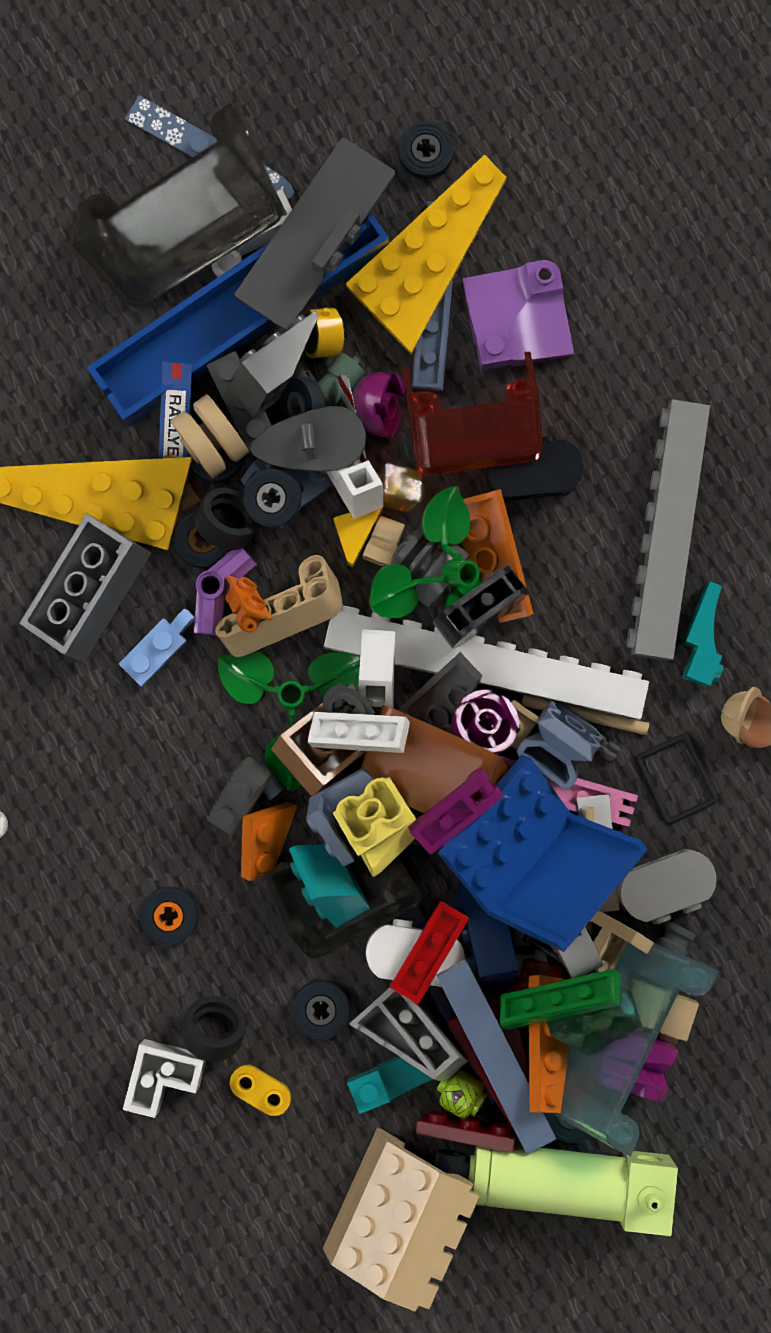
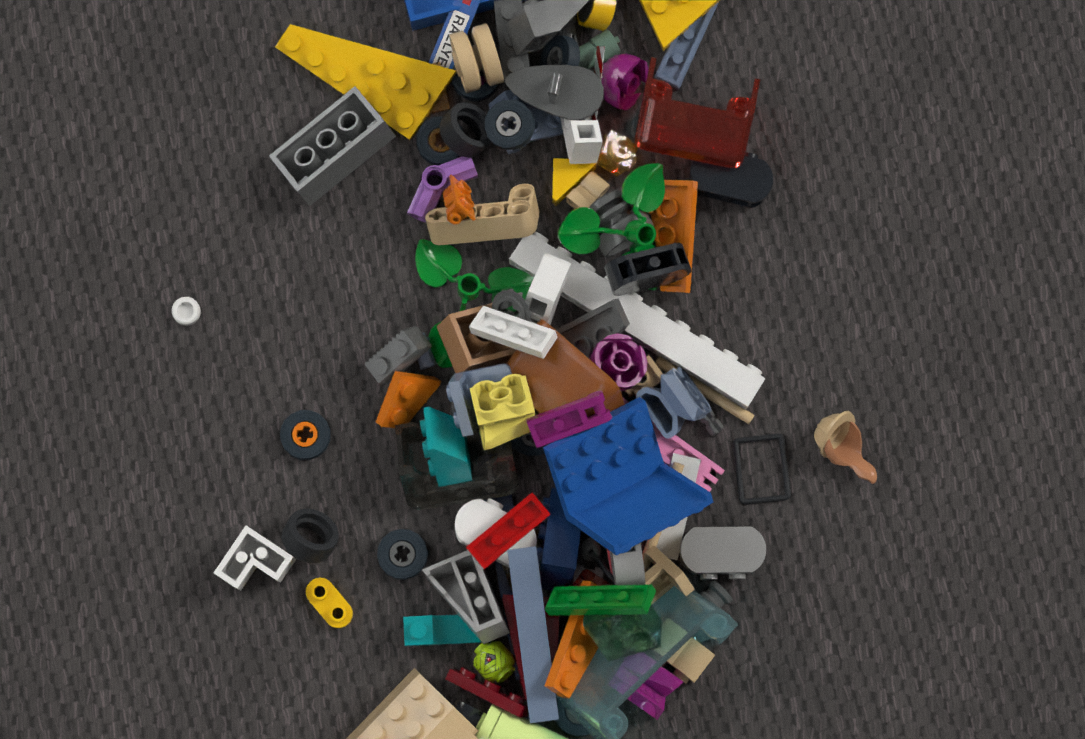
camera: 15 degrees right, 5 degrees down
(157, 648) = (372, 215): light blue plate -> none
(518, 314) = (762, 47): medium lavender slope -> none
(669, 531) = (825, 264): light grey brick -> none
(704, 662) = (817, 379): teal slope -> none

